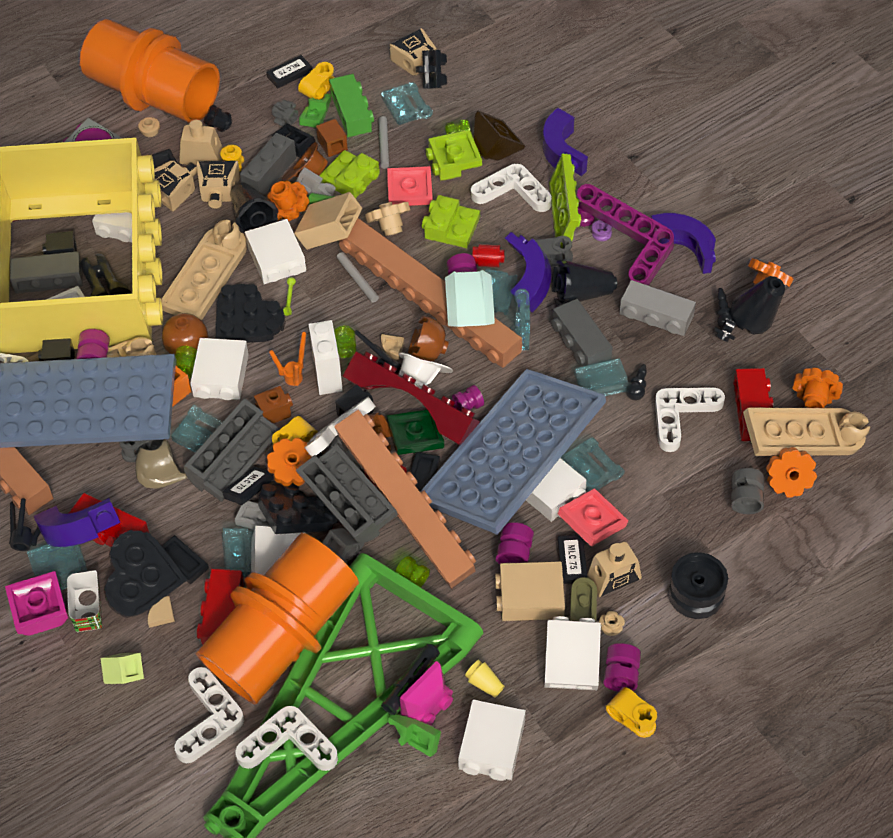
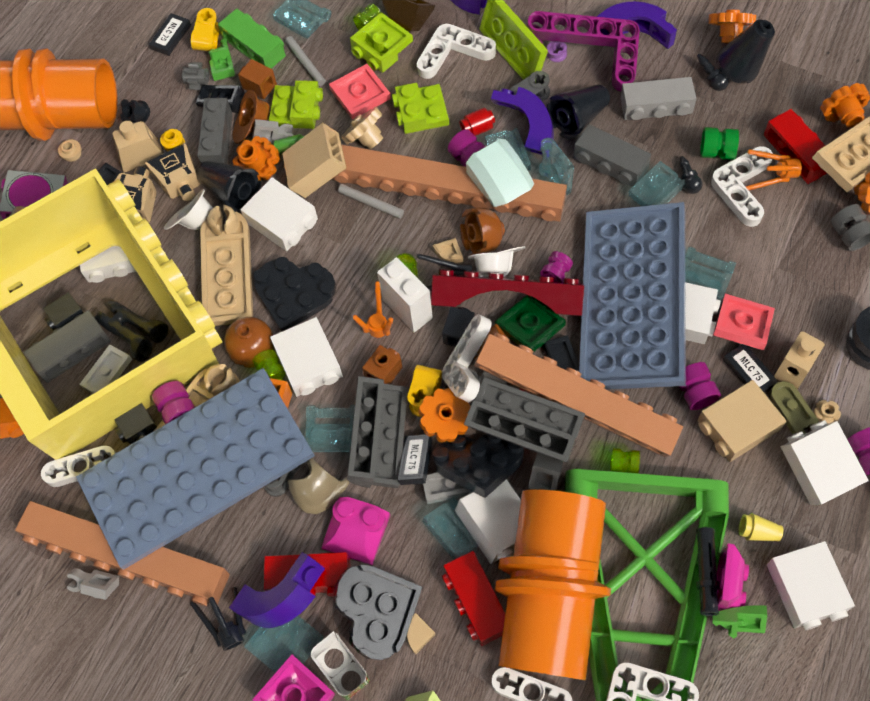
camera: 25 degrees left, 10 degrees up
(169, 513) = (356, 529): none -> dark pink slope
(186, 560) = (403, 565): black tile -> none
(207, 220) = (192, 214): none -> white piece
(287, 310) = (312, 236): lime hinge -> none
(684, 369) = (719, 143): none -> green wheel
(724, 333) = (728, 88): black plate -> none
(727, 416) = (785, 168): none -> orange plant

